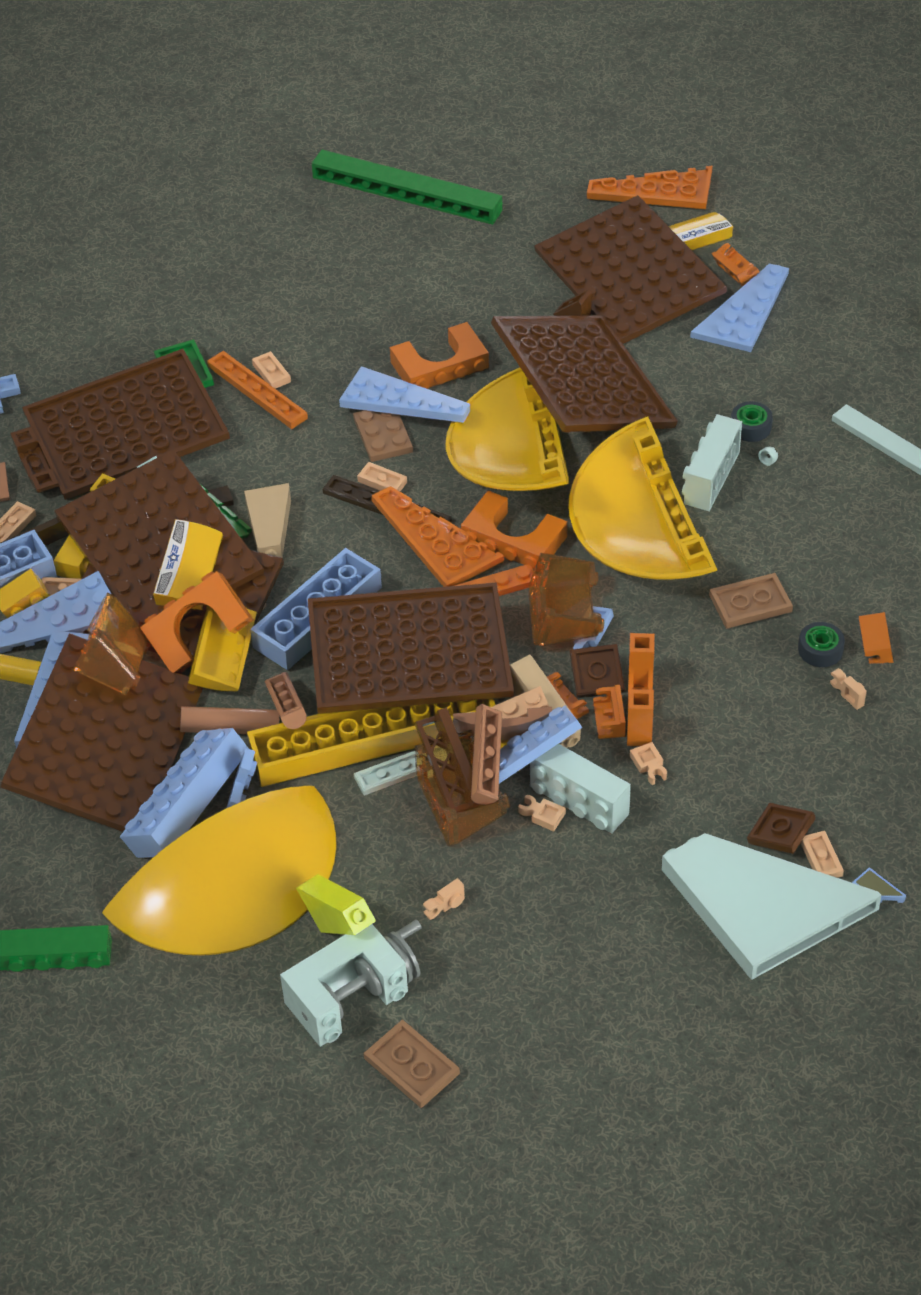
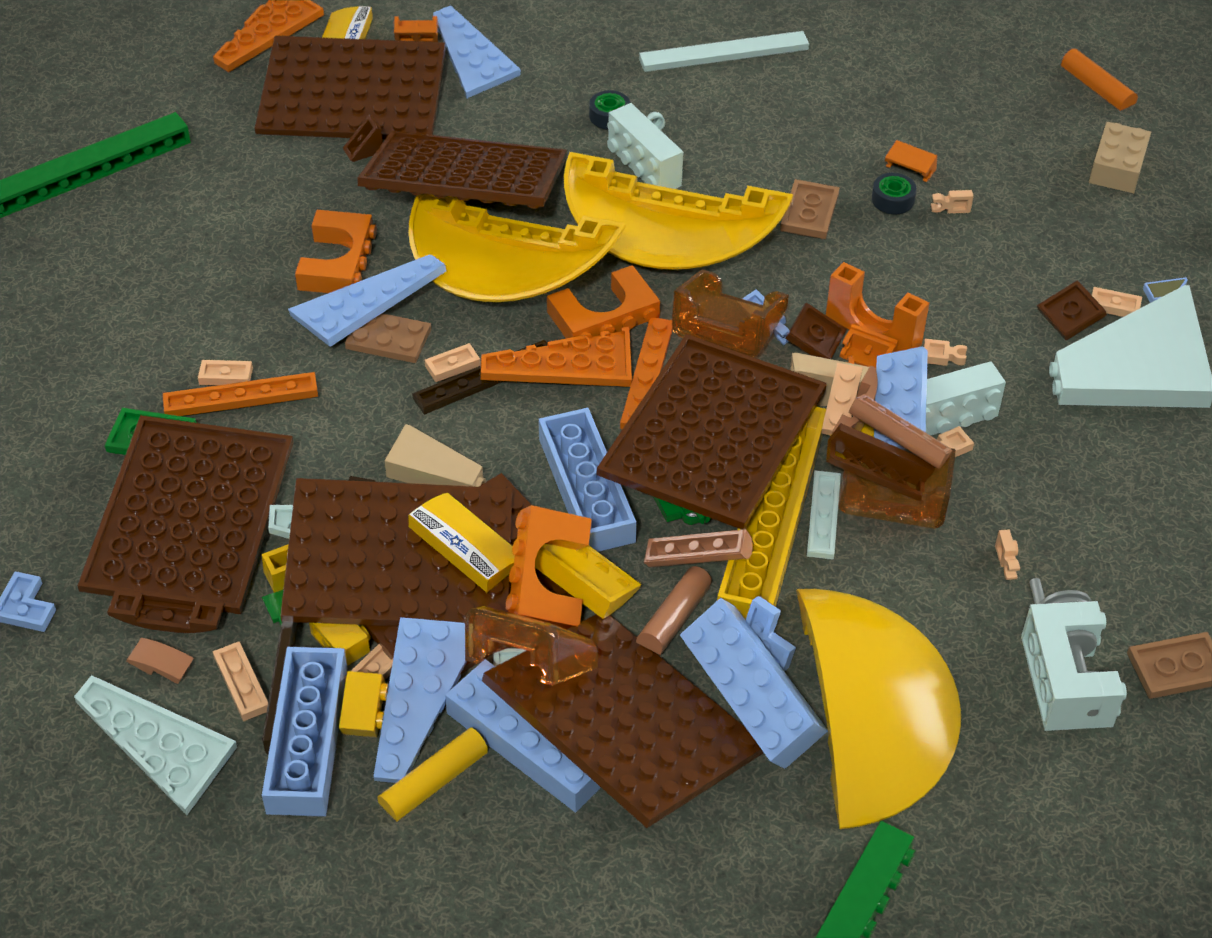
camera: 60 degrees left, 0 degrees up
(335, 907) = (996, 623): neon yellow slope -> none

